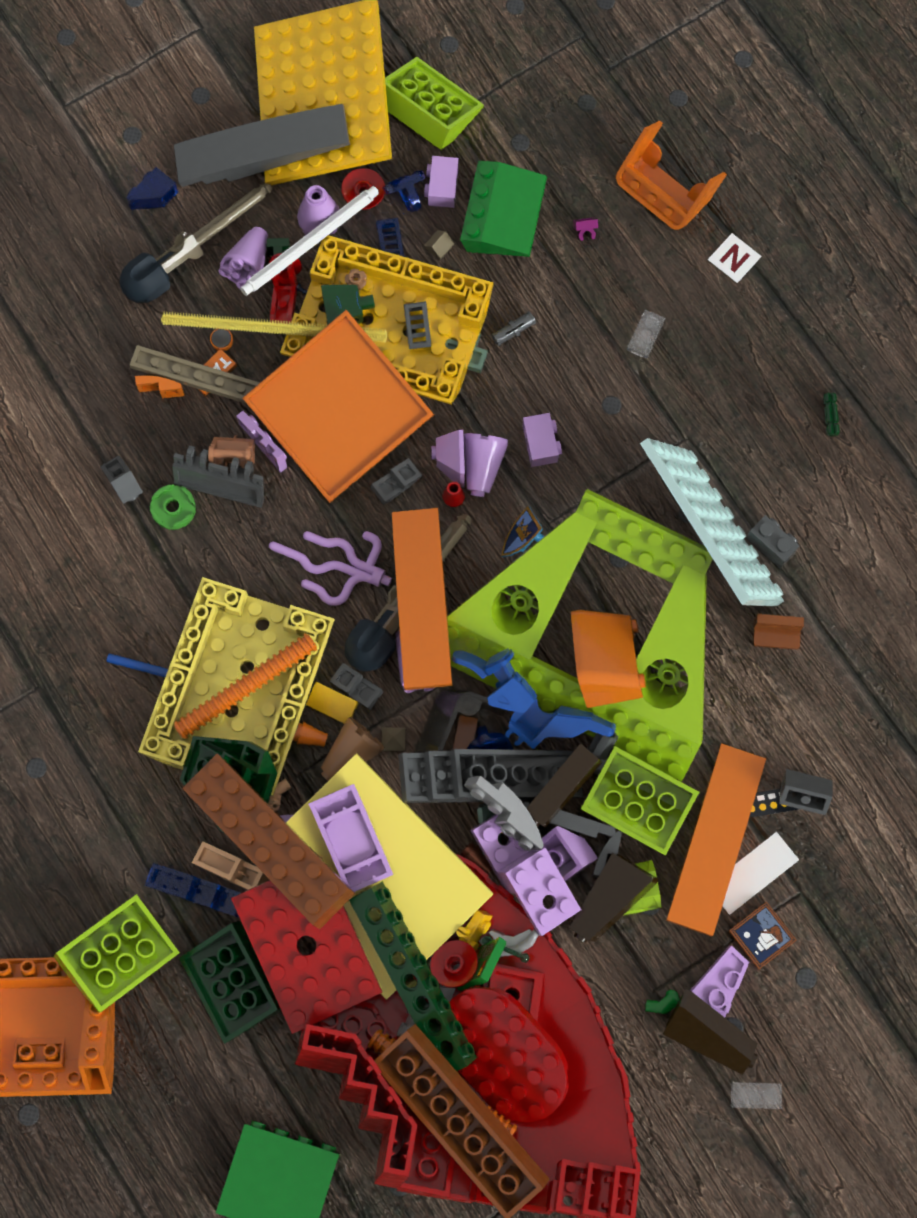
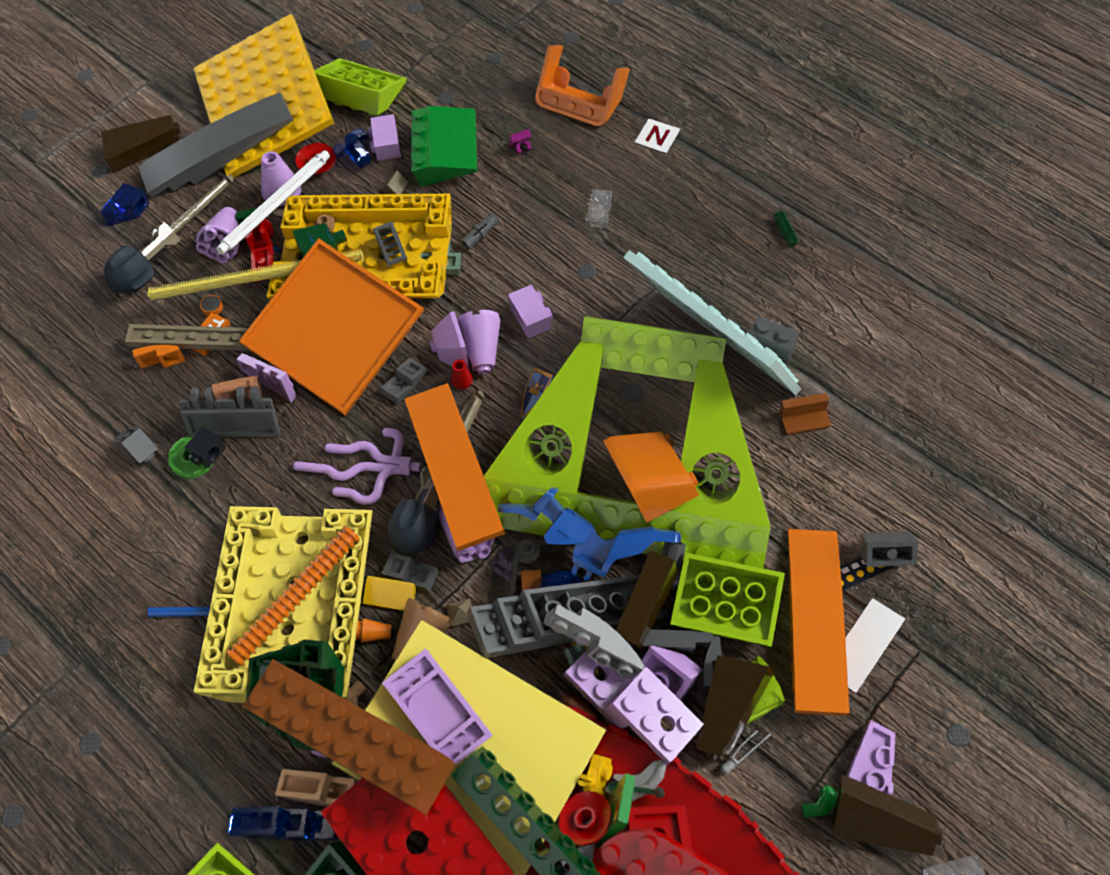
camera: 10 degrees left, 15 degrees down
(179, 111) = (138, 141): none -> dark brown slope
(188, 506) = (204, 447): none -> black brick
(389, 223) = (345, 179): clear blue slope -> none
(594, 948) = (732, 763): none -> piece
(762, 935) = (897, 703): tile -> none

